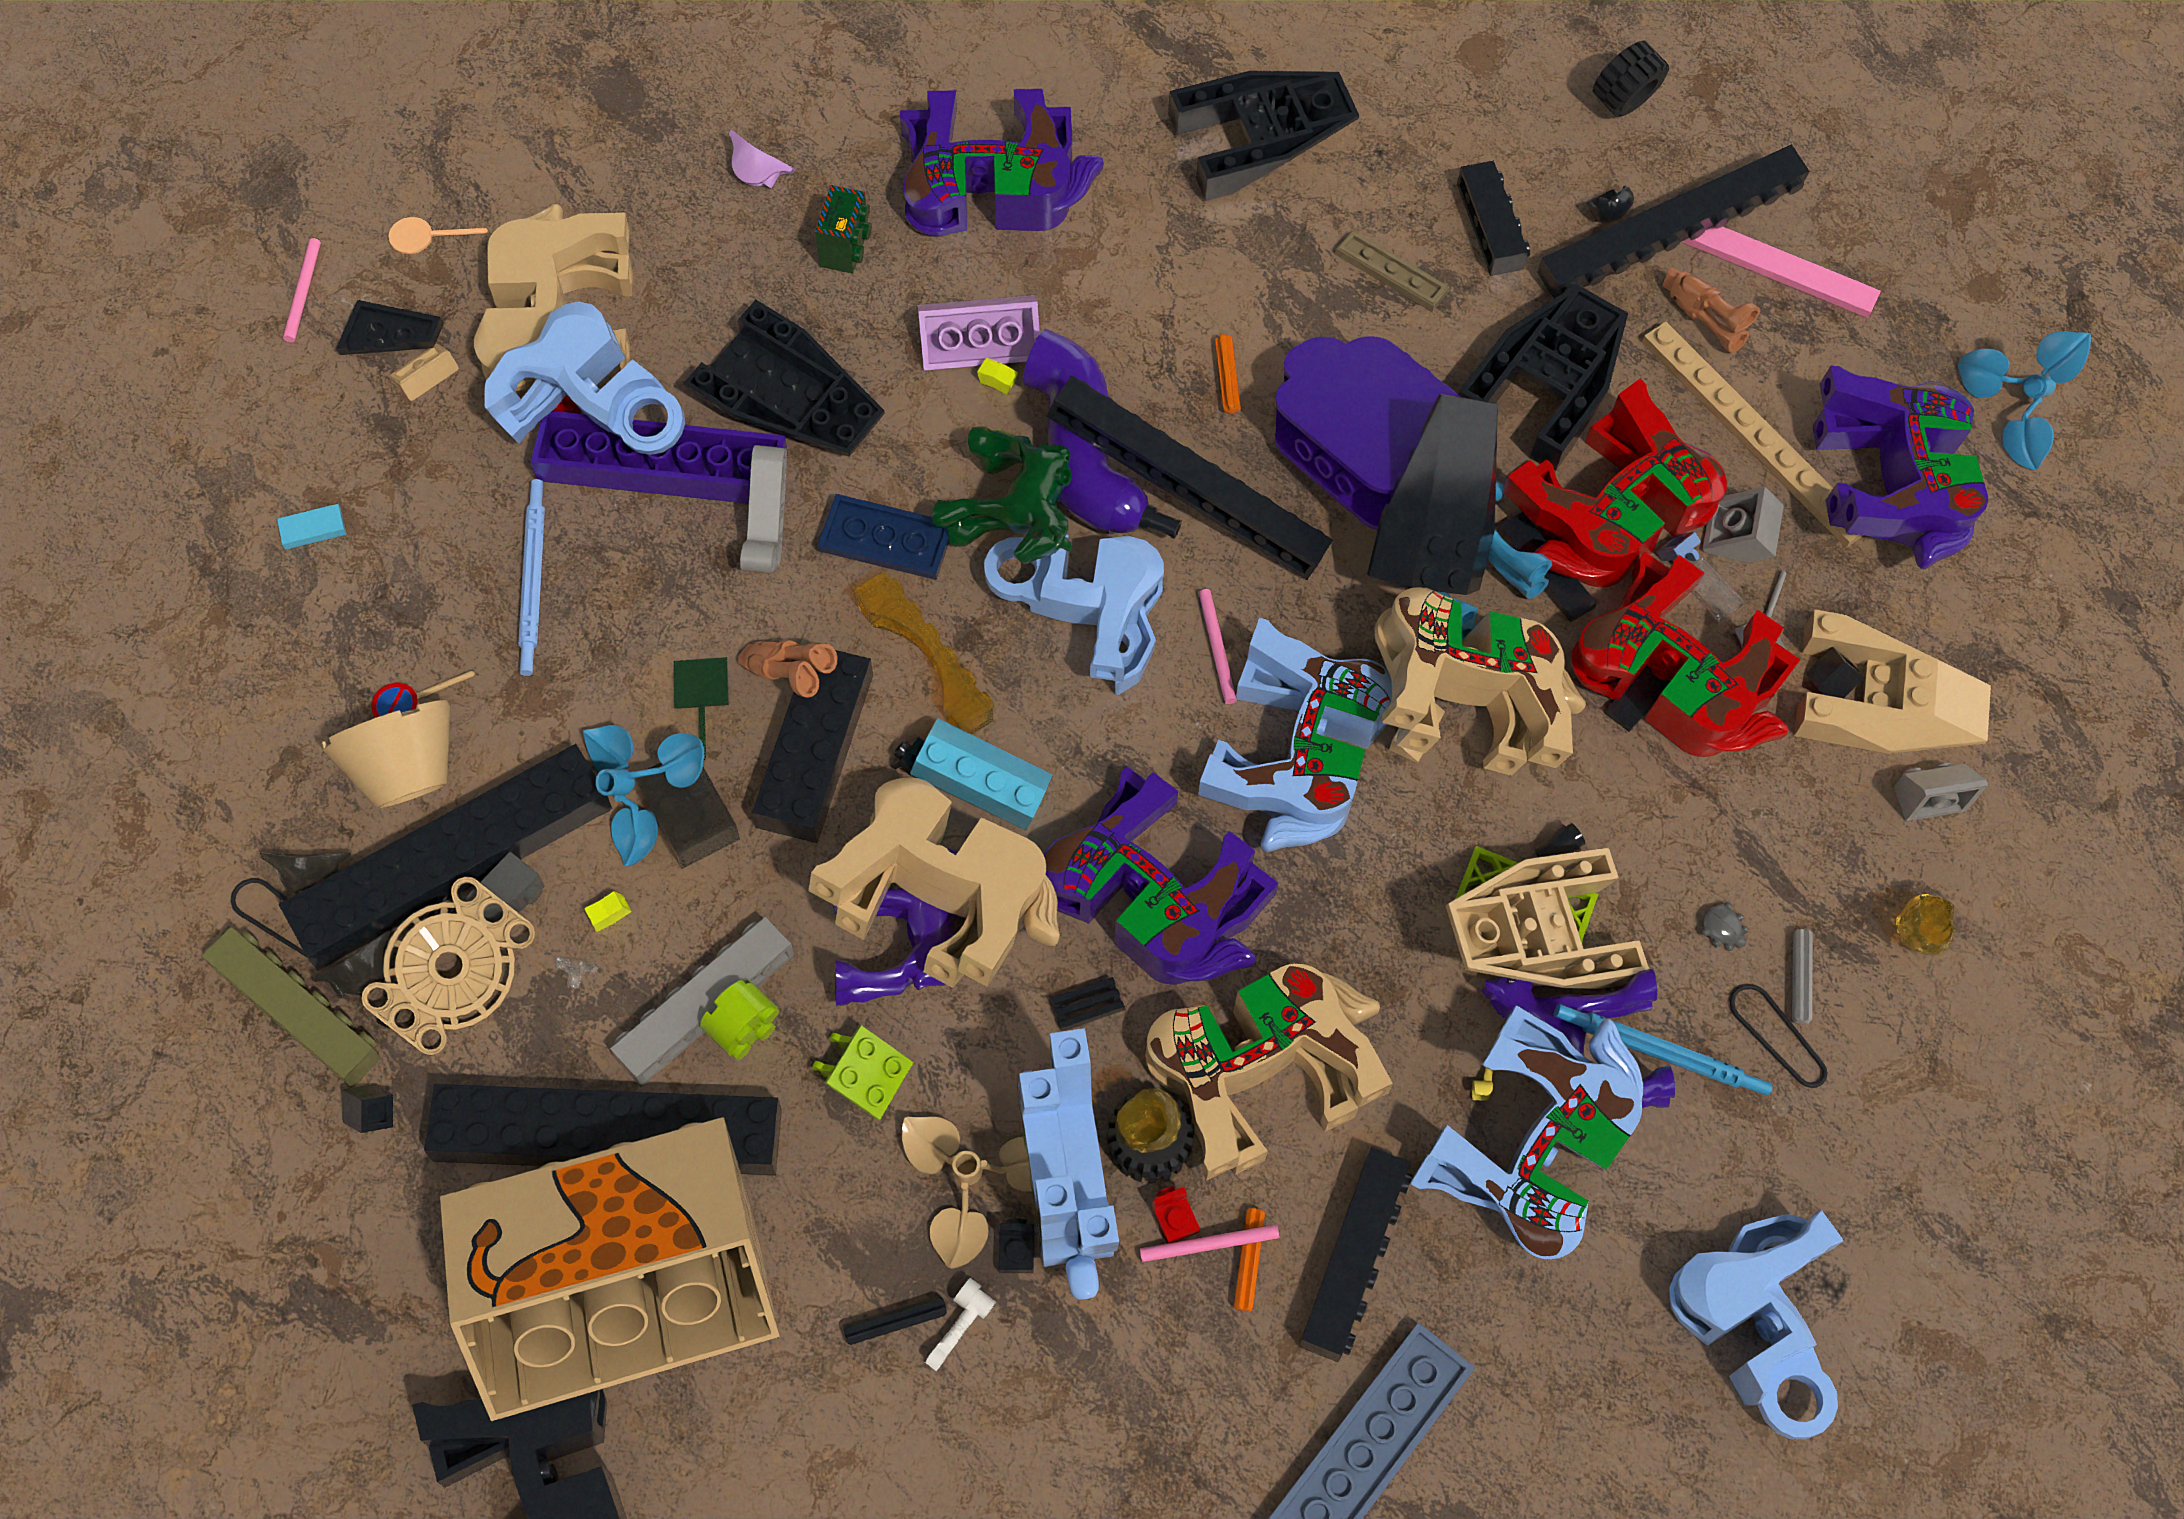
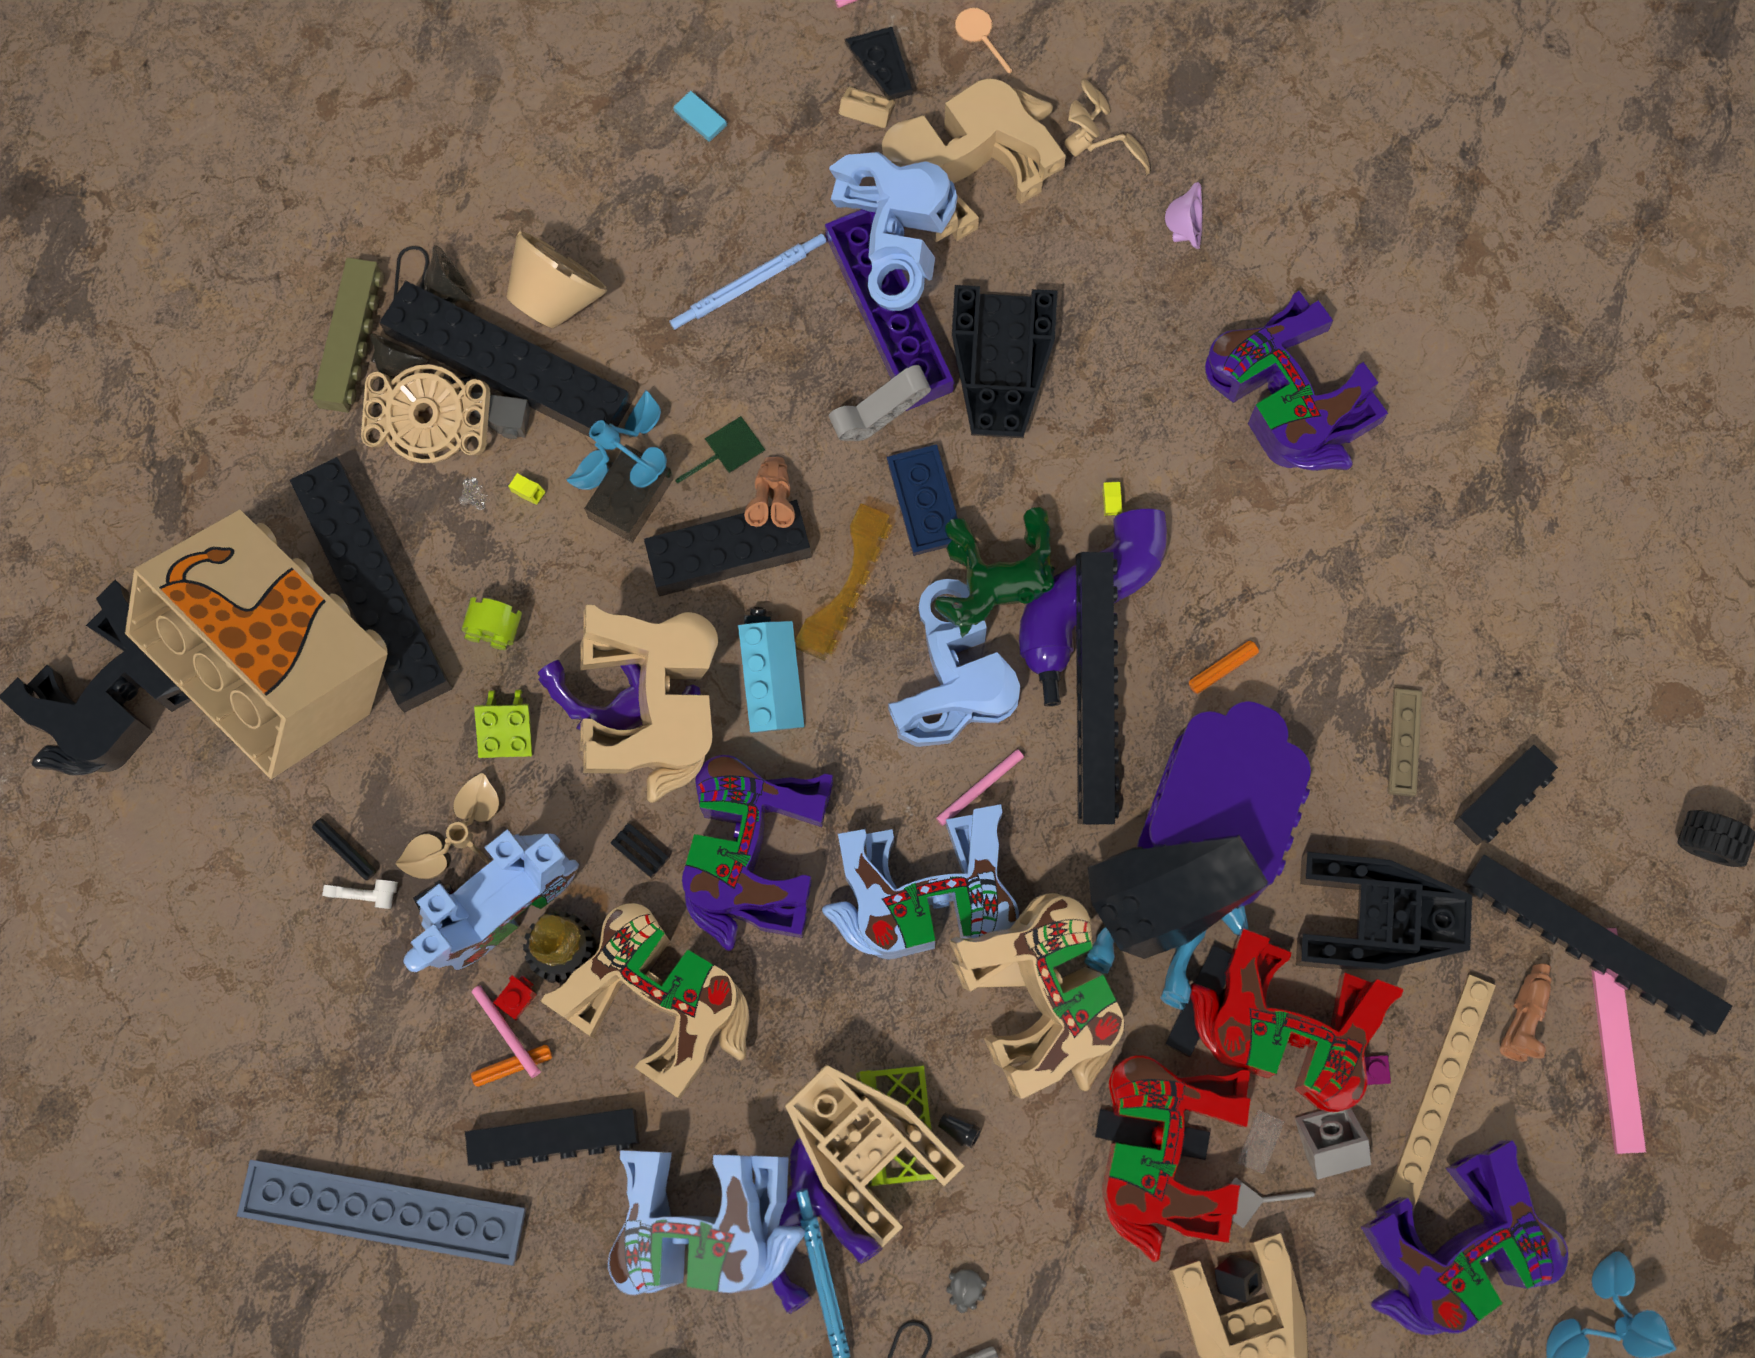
camera: 65 degrees right, 10 degrees up
(367, 1108) = (306, 426): black panel -> none
(404, 698) = (603, 257): piece -> none
(607, 200) = (1084, 136): none -> tan plant
(676, 1023) = (464, 581): light grey brick -> none
(842, 229) = (1162, 314): dark green brick -> none
(976, 330) = (1141, 462): lavender slope -> none
(1277, 113) = (1486, 577): black wedge -> none
(1611, 204) = (1583, 884): black hair -> none
(1680, 545) = (1280, 1097): tile -> none

